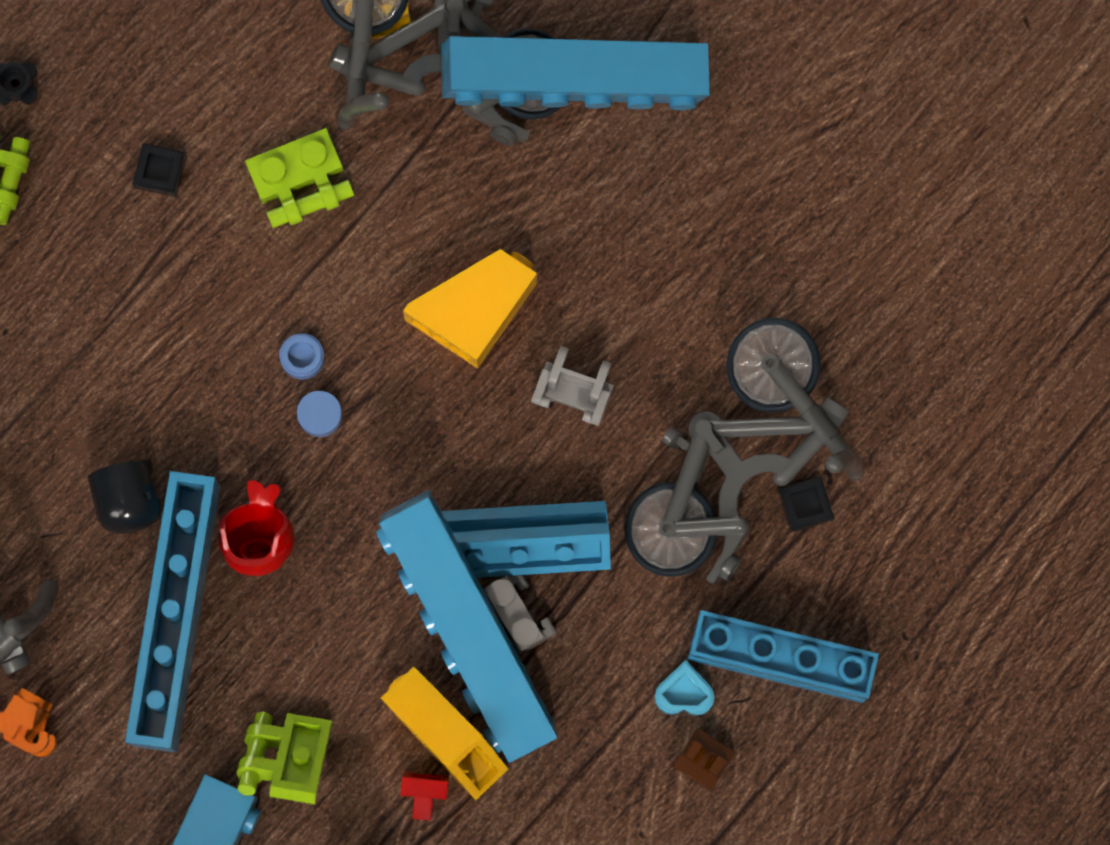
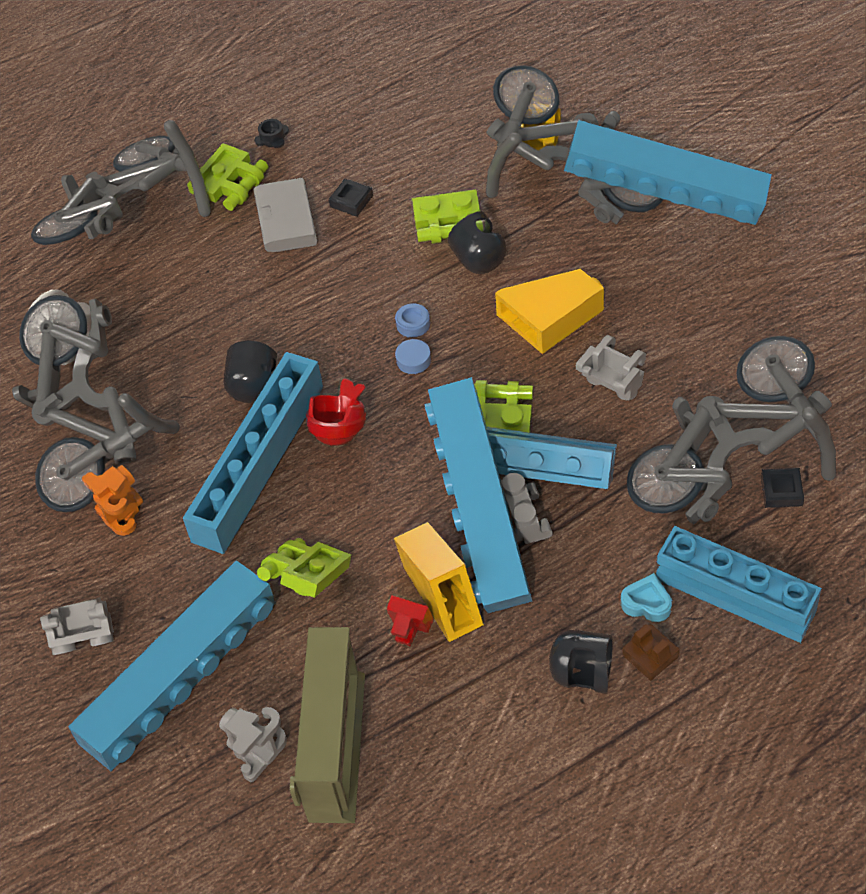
camera: 25 degrees right, 25 degrees down
(81, 221) = (285, 215): none -> light grey piece
(353, 233) = (475, 249): none -> black helmet
(452, 486) = (509, 415): none -> lime plate
(633, 794) = (585, 652): none -> black helmet

